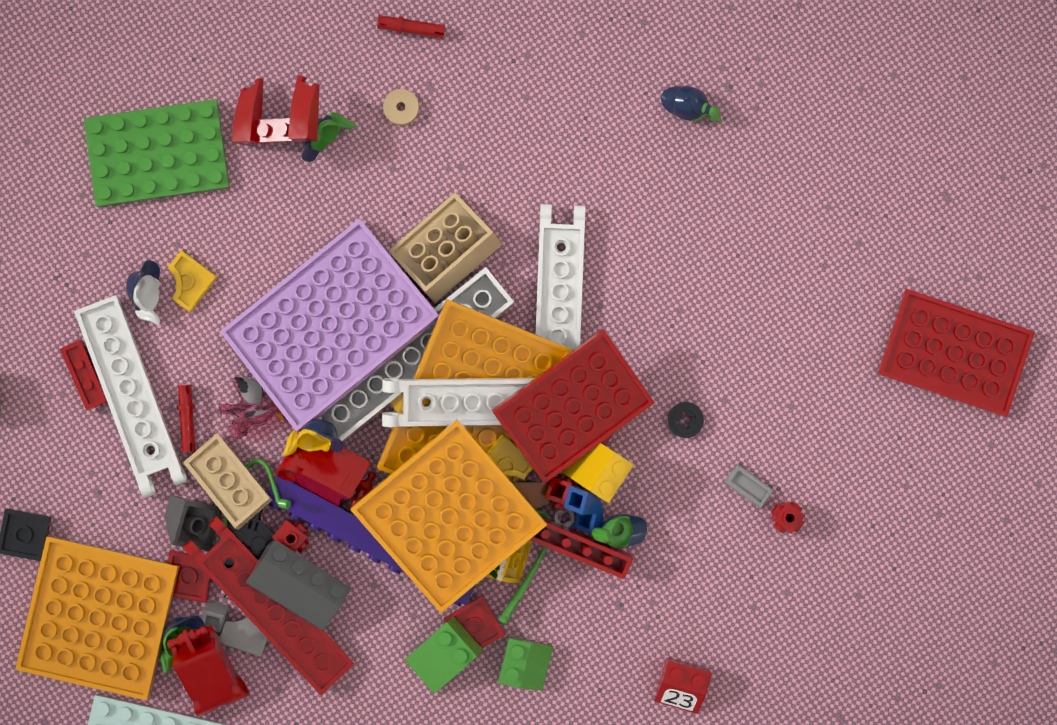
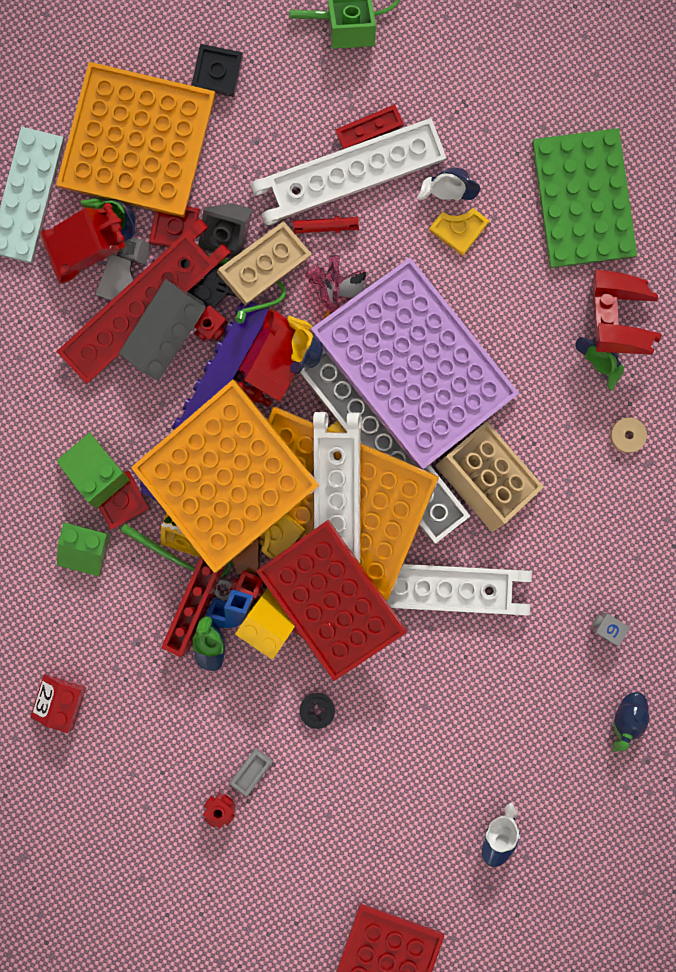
camera: 90 degrees right, 0 degrees up
(597, 125) = (610, 628): none -> light grey brick
(808, 232) = (501, 838): none -> white hair

